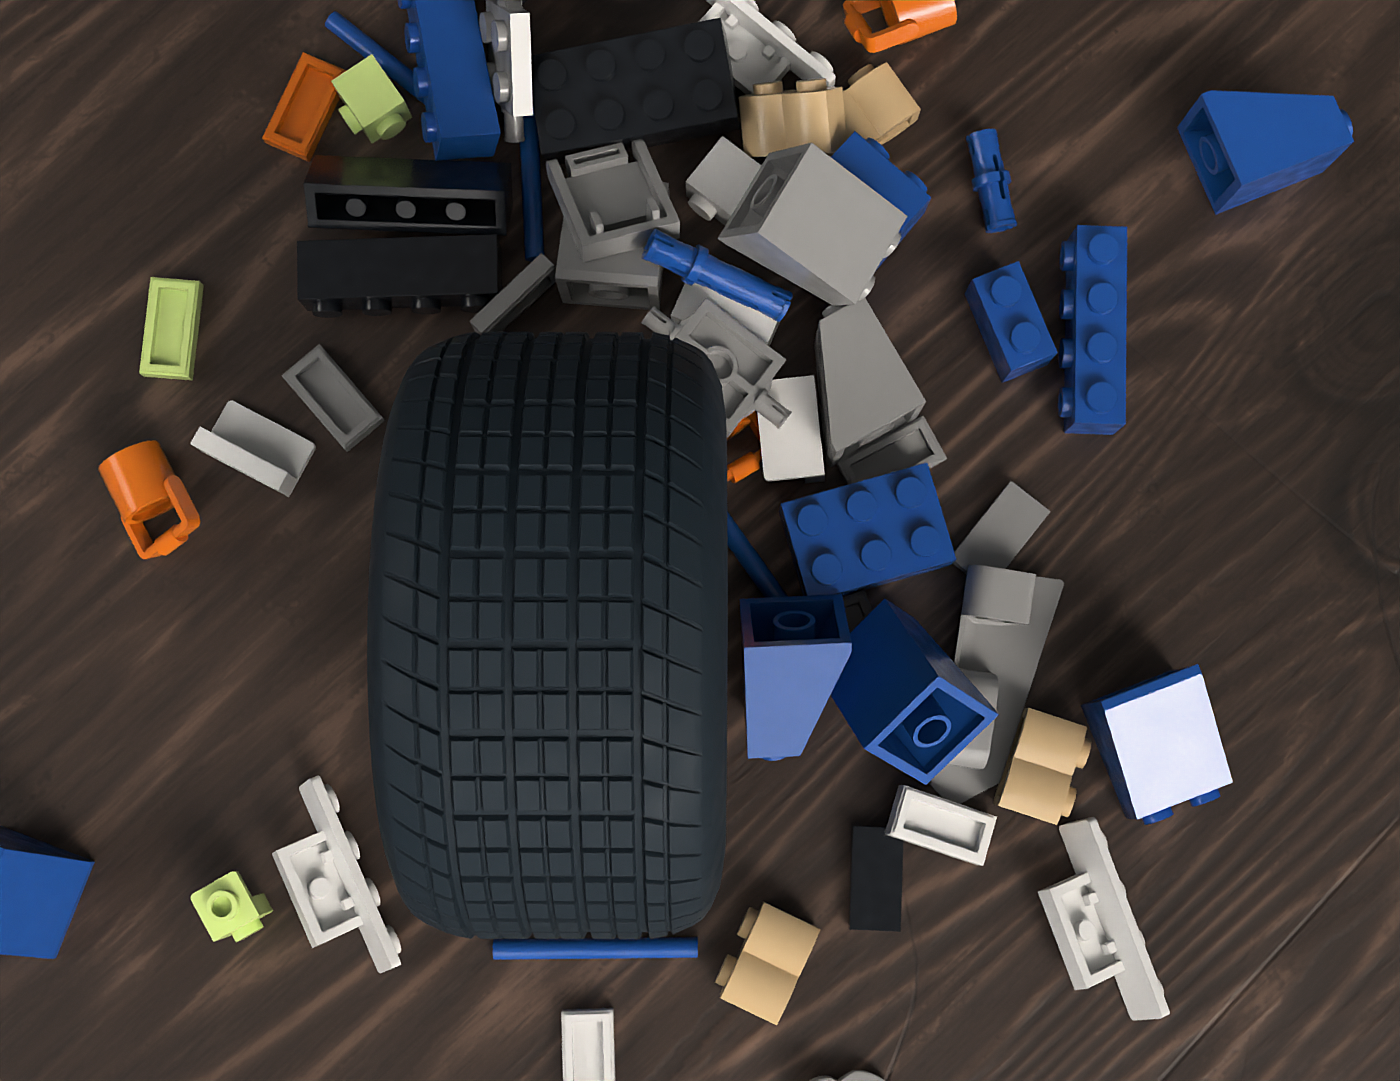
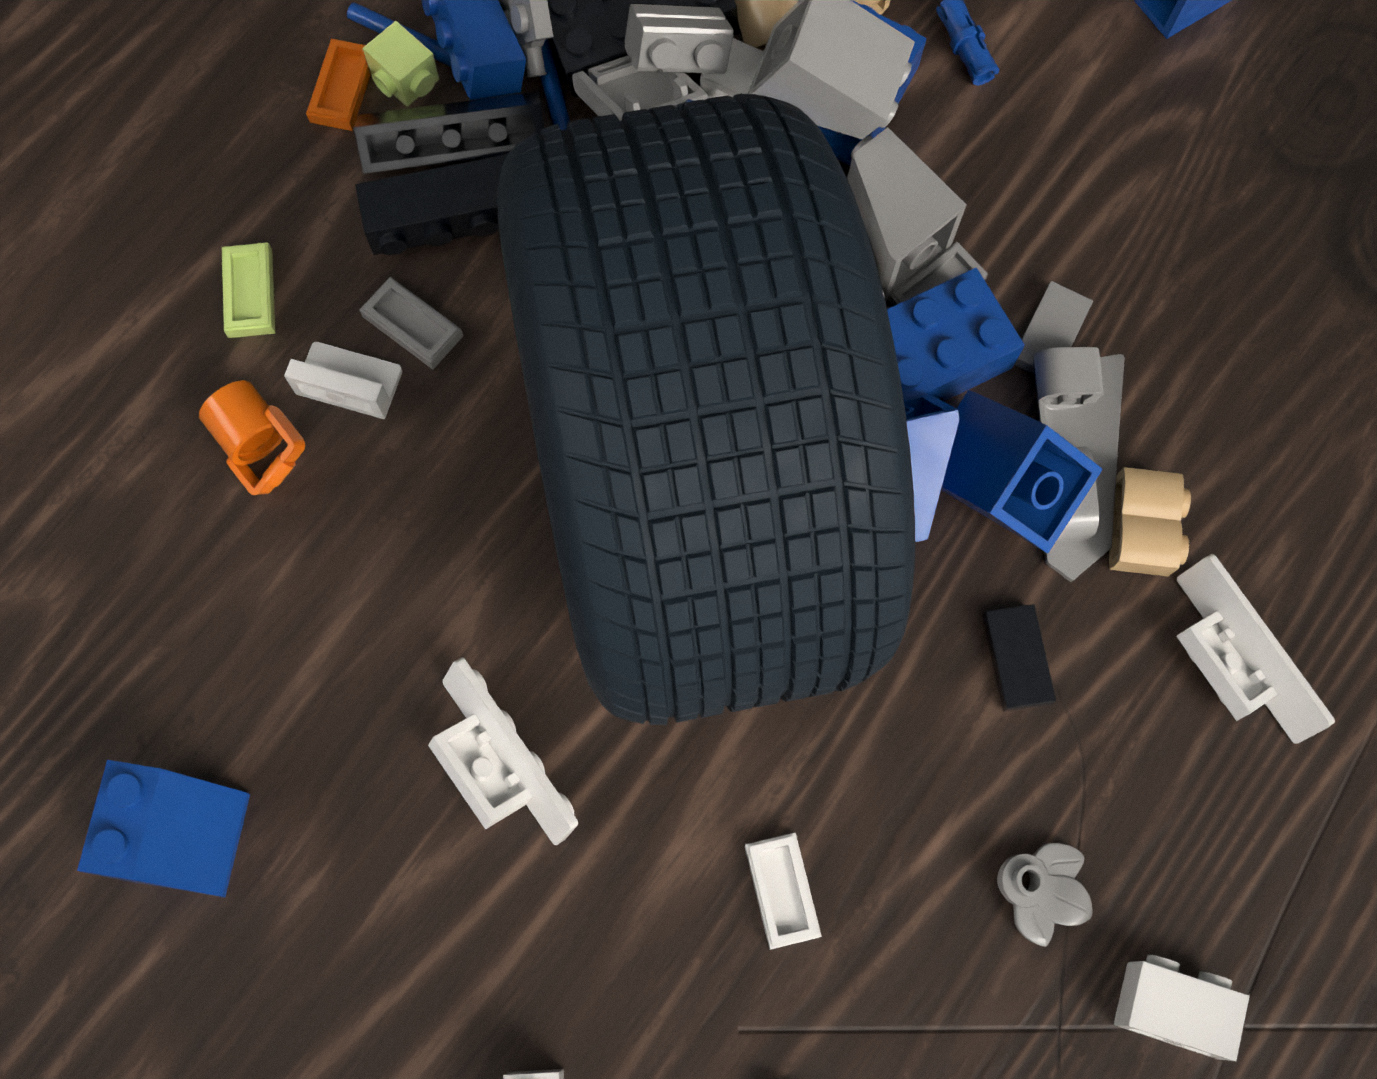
camera: 15 degrees left, 10 degrees down
(229, 908) = (397, 803): yellowish green bracket -> none
(595, 948) = (764, 777): blue bar -> none
(664, 147) = (678, 38): none -> light grey brick
(768, 961) = (936, 754): tan brick -> none
(940, 825) = (1068, 594): white tile -> none
(1010, 322) = (1016, 146): blue brick -> none
(1094, 330) = (1093, 141): blue brick -> none
(1160, 743) = (1252, 475): slope -> none

